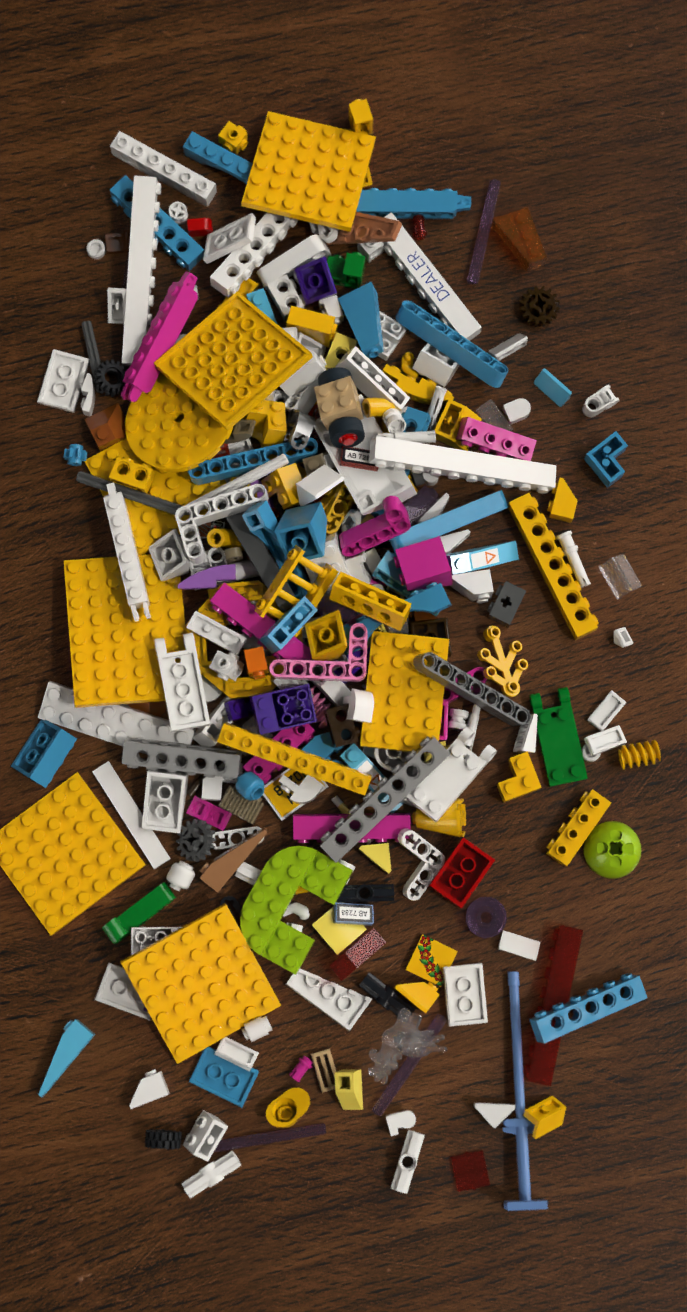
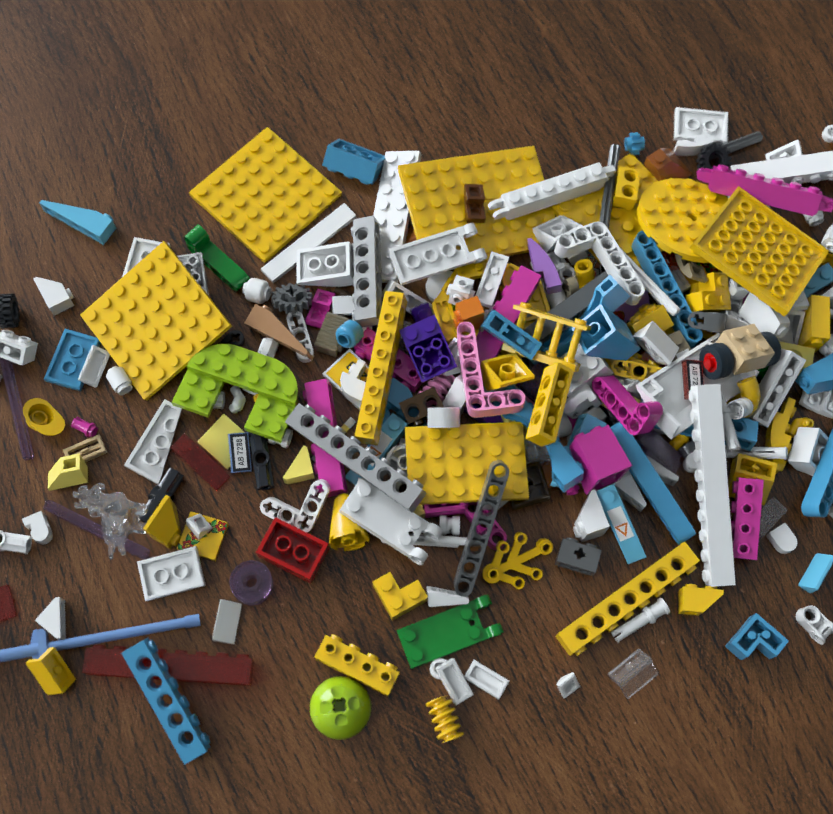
camera: 80 degrees right, 10 degrees down
(128, 635) = (474, 203): none -> reddish brown slope
(422, 962) = (198, 525): none -> white slope

